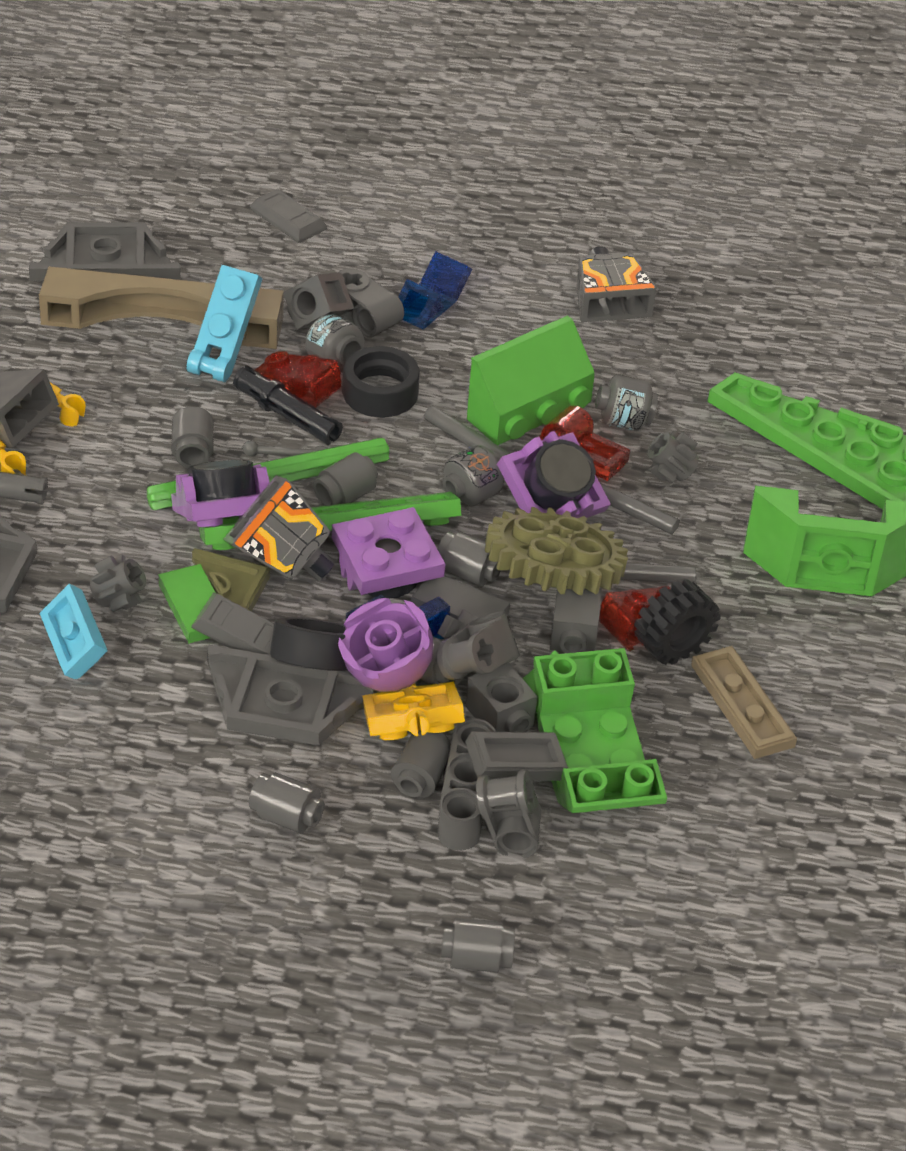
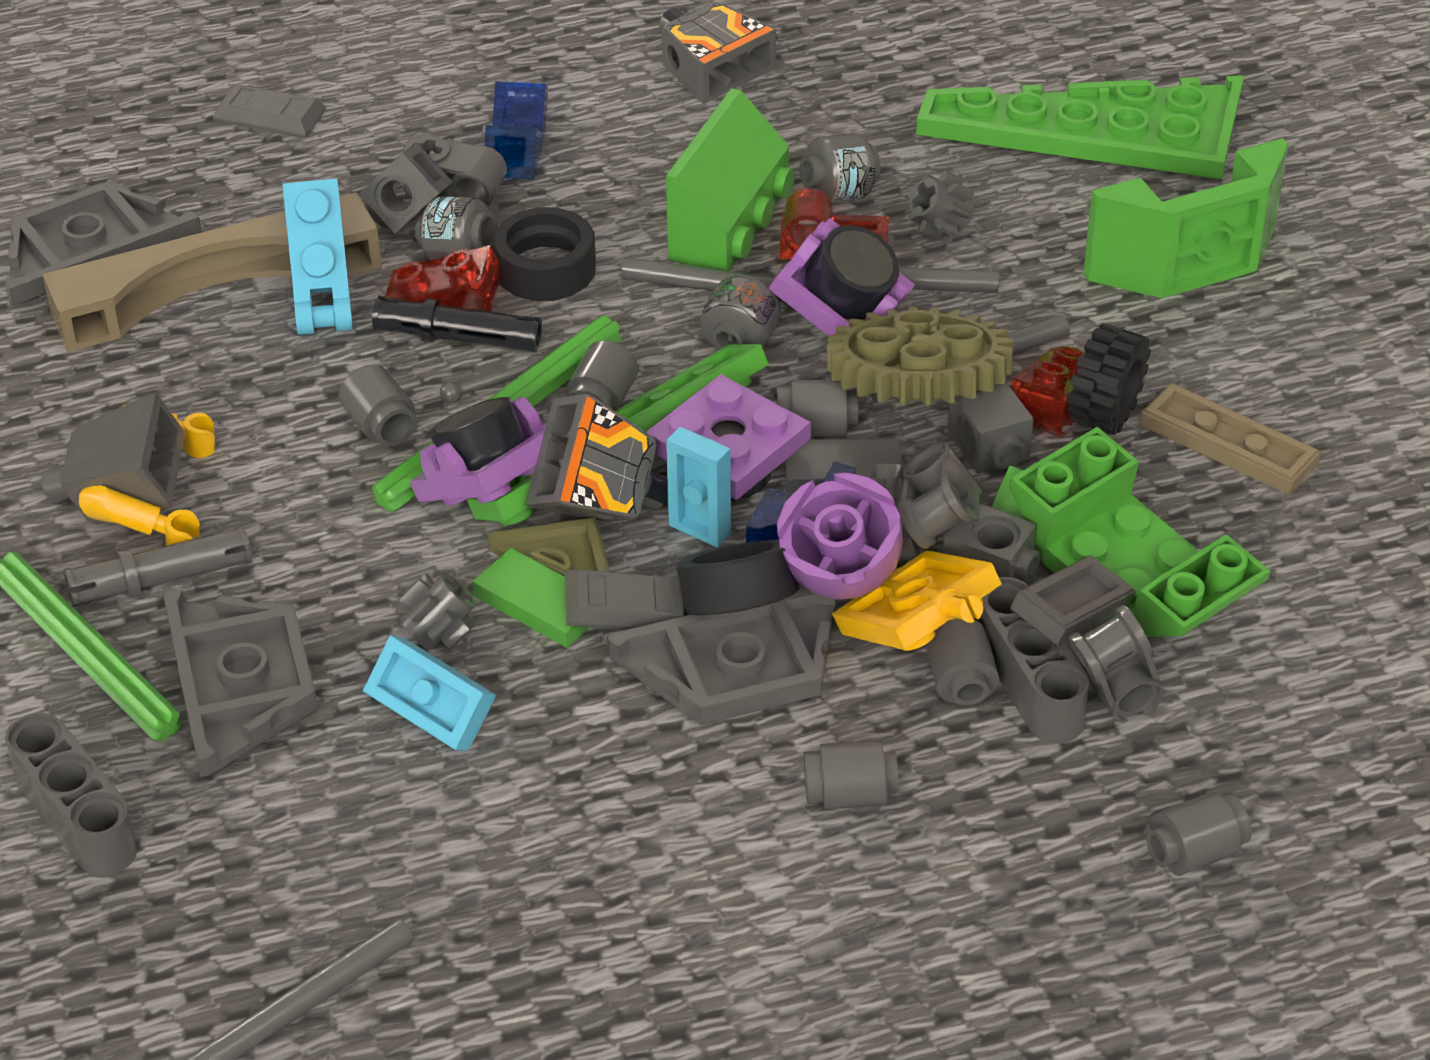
camera: 25 degrees left, 0 degrees up
(337, 573) = (699, 486): none -> medium azure plate

